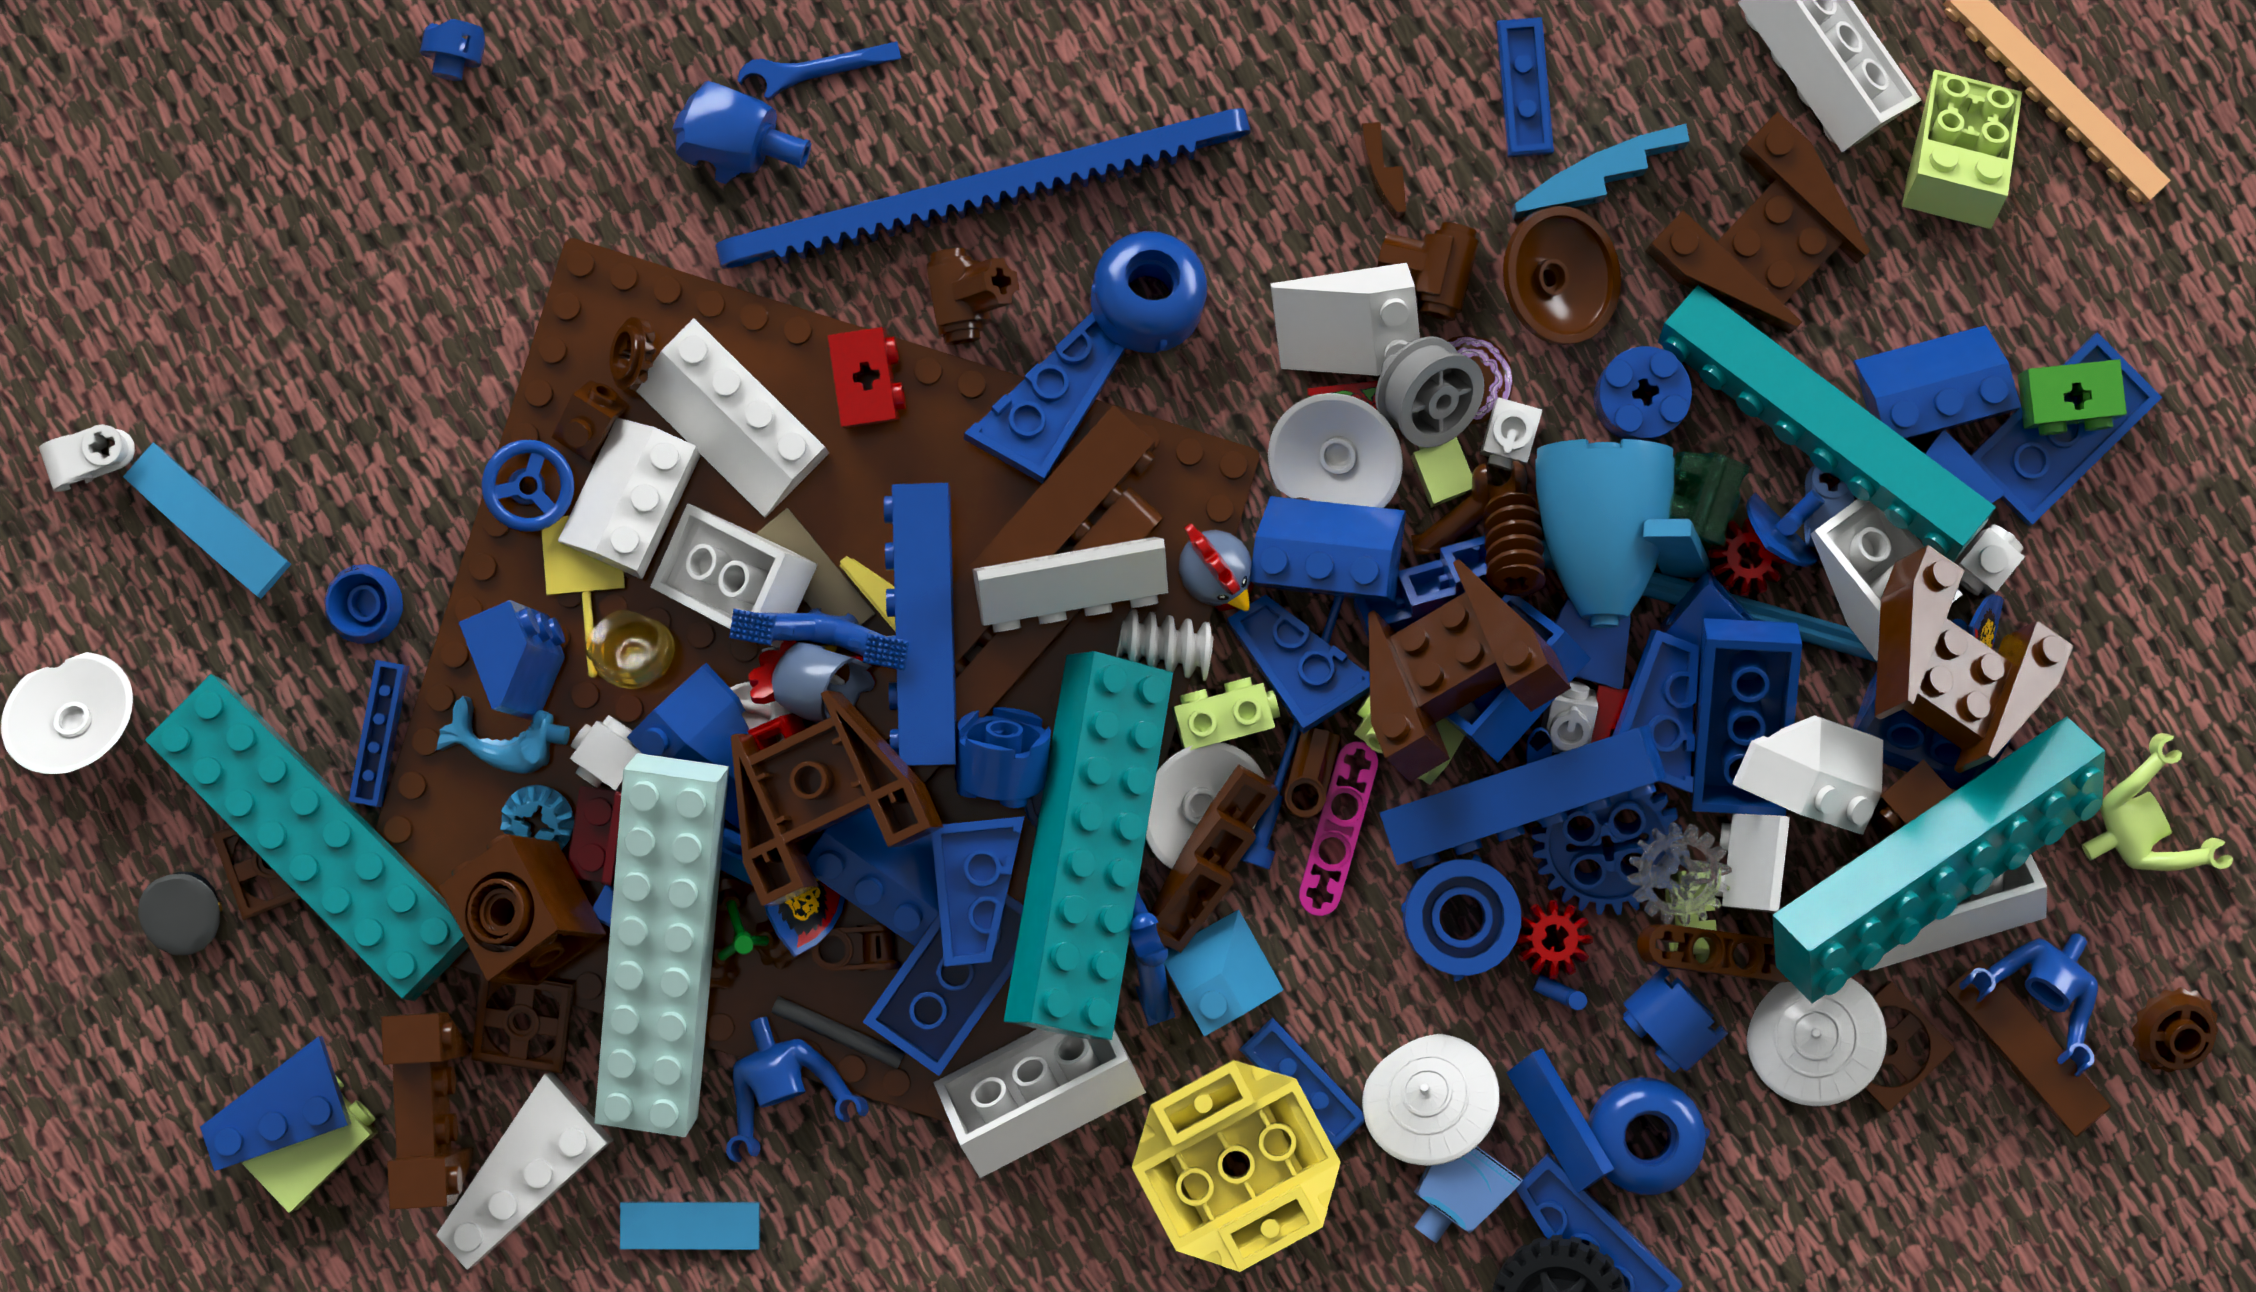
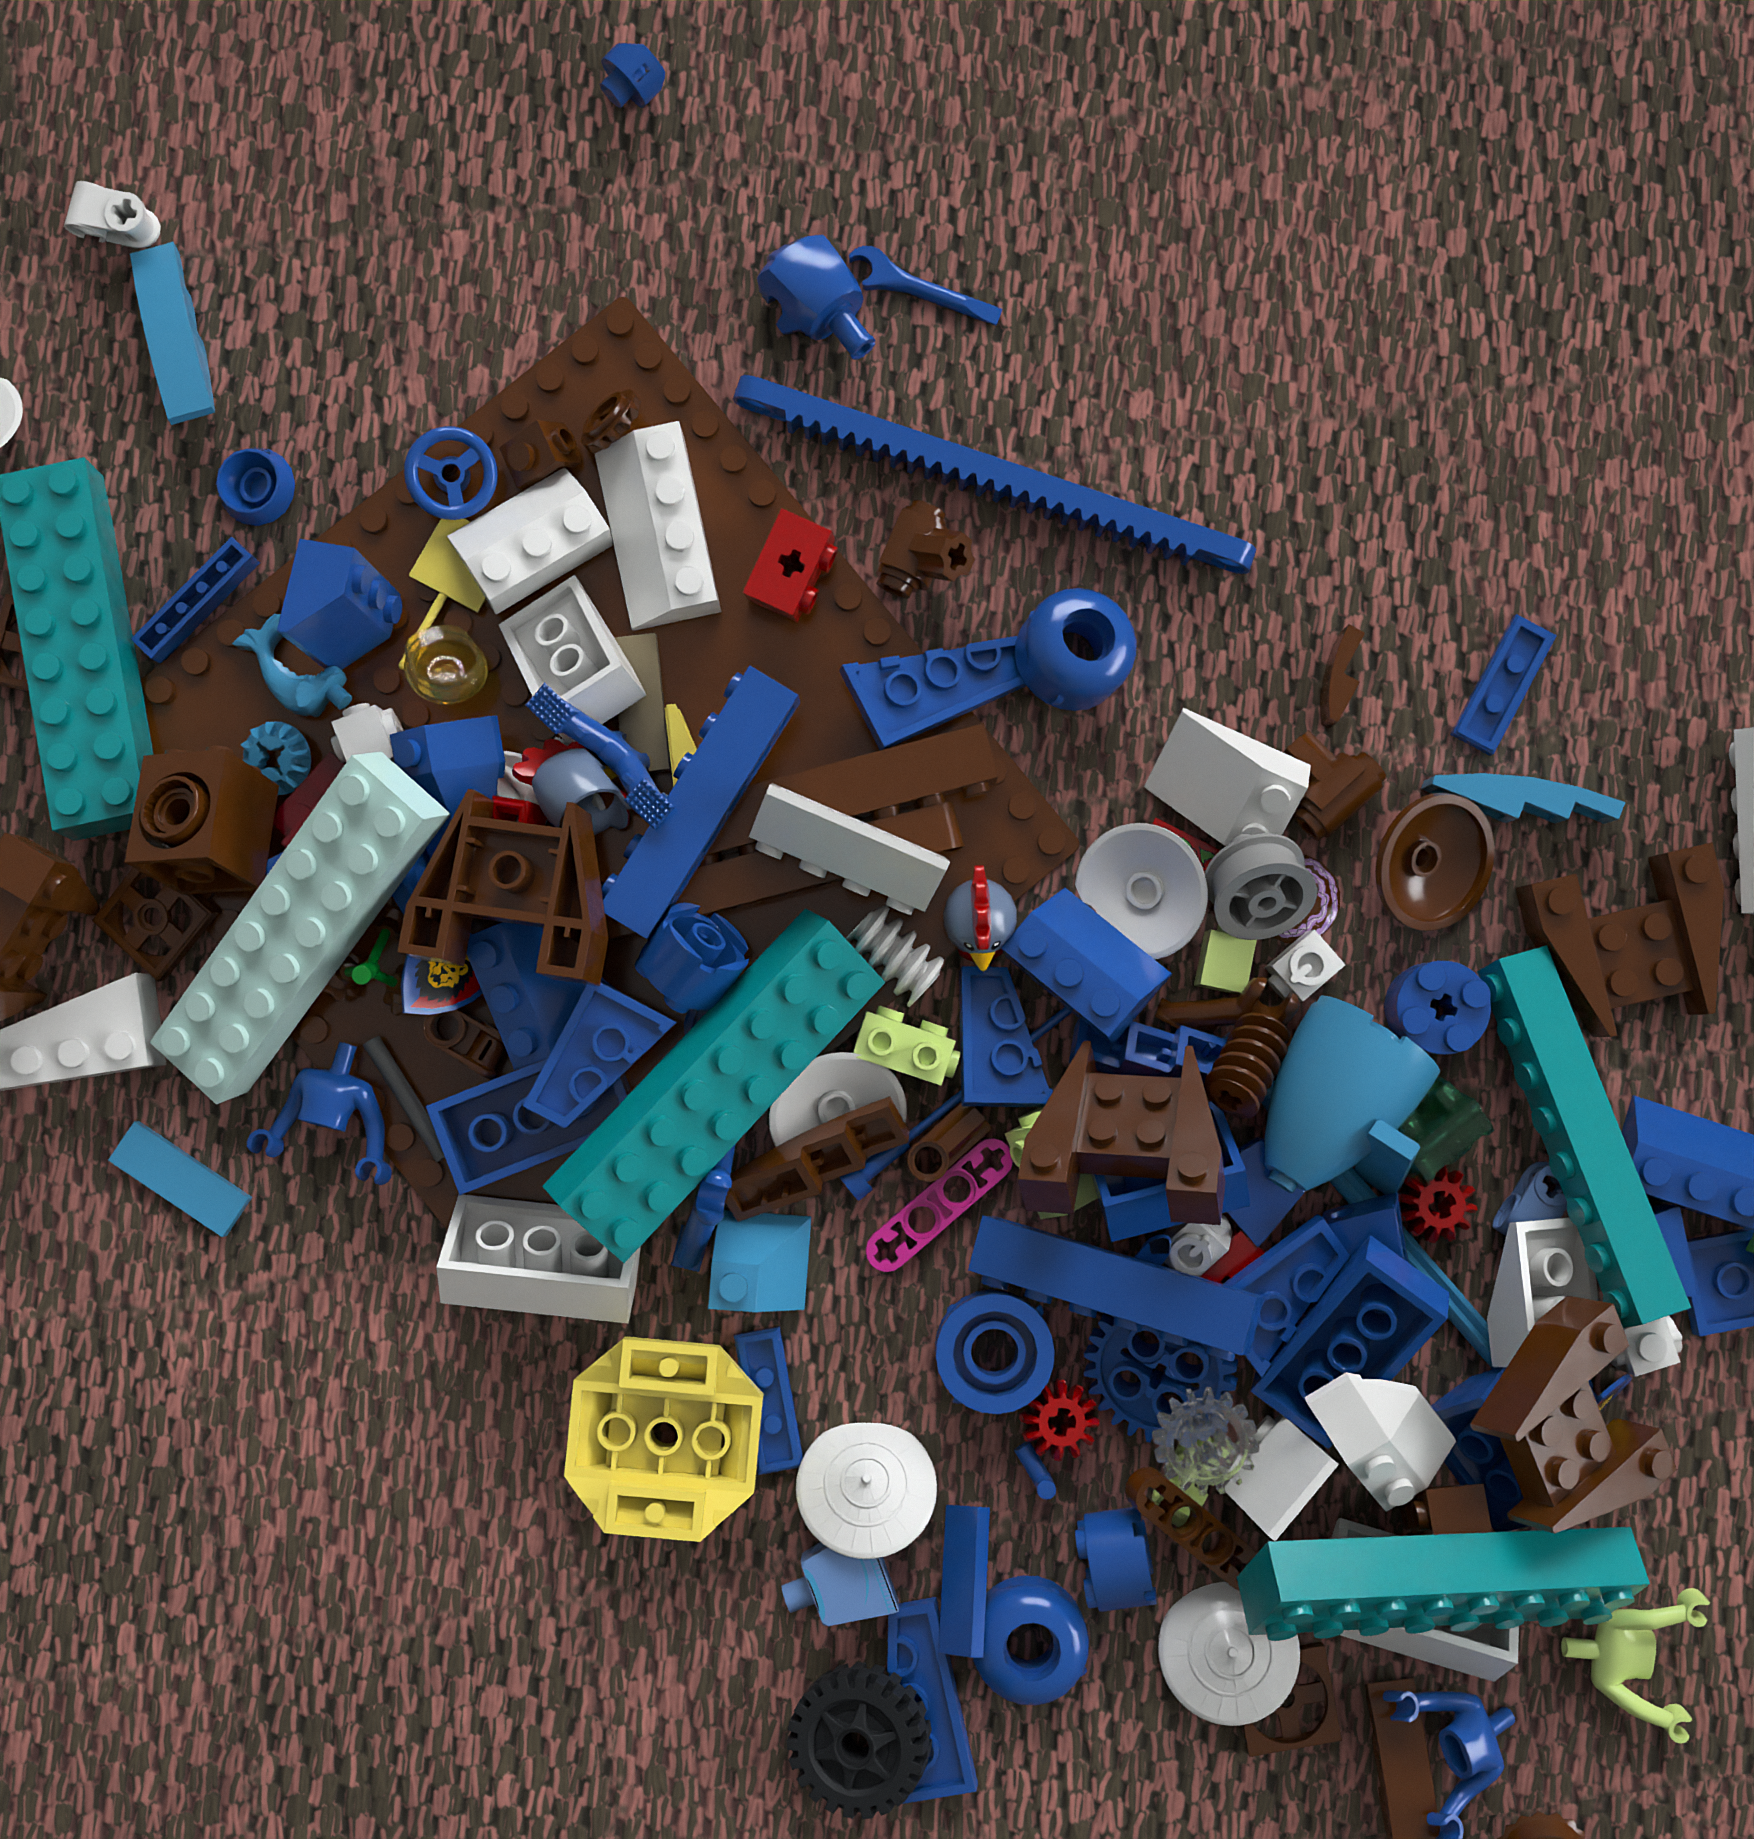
camera: 30 degrees right, 0 degrees up
(1779, 534) = (1482, 1202): blue shield -> none

